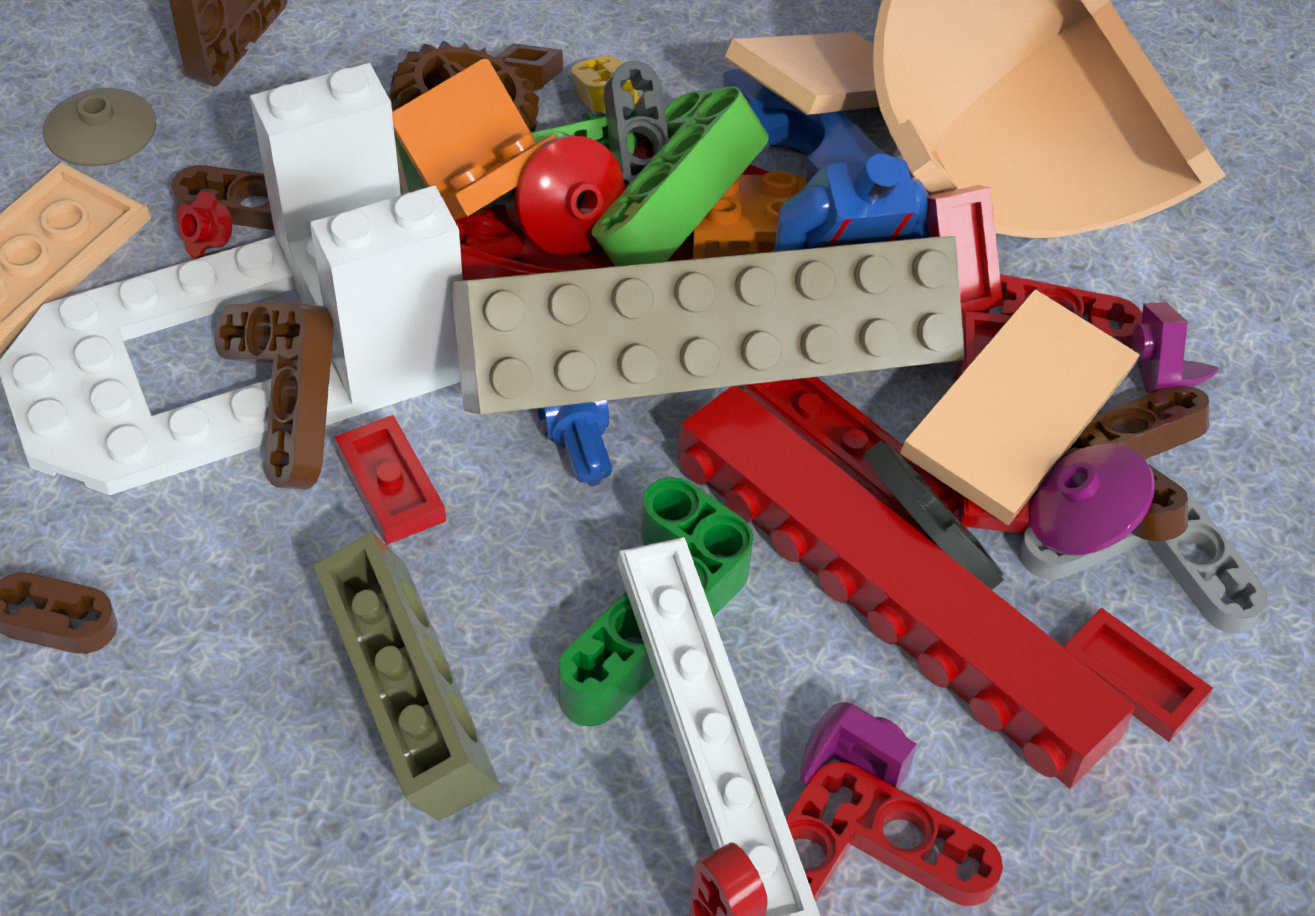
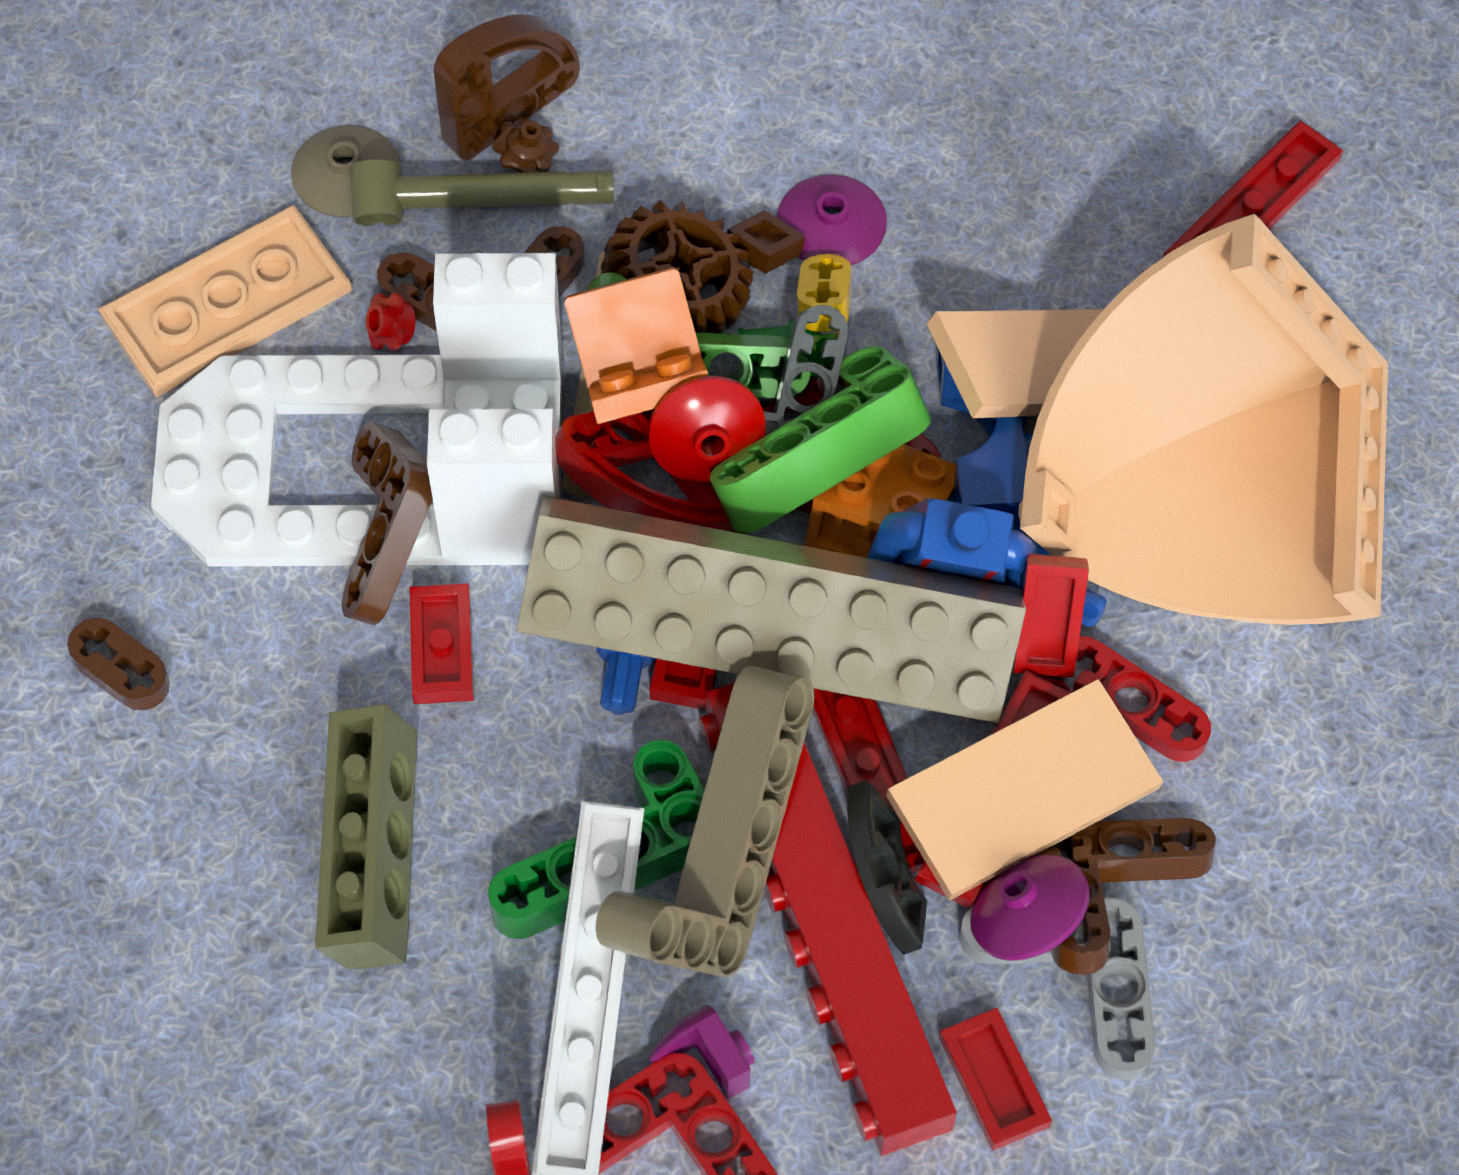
camera: 25 degrees right, 10 degrees up
(150, 126) = (382, 192): none -> olive piece
(267, 55) = (525, 146): none -> reddish brown plant
(579, 32) = (851, 233): none -> magenta dish
(644, 426) = (681, 684): none -> red plate
(791, 615) = (732, 836): none -> dark tan beam
(1161, 348) = (1200, 797): magenta plate -> none

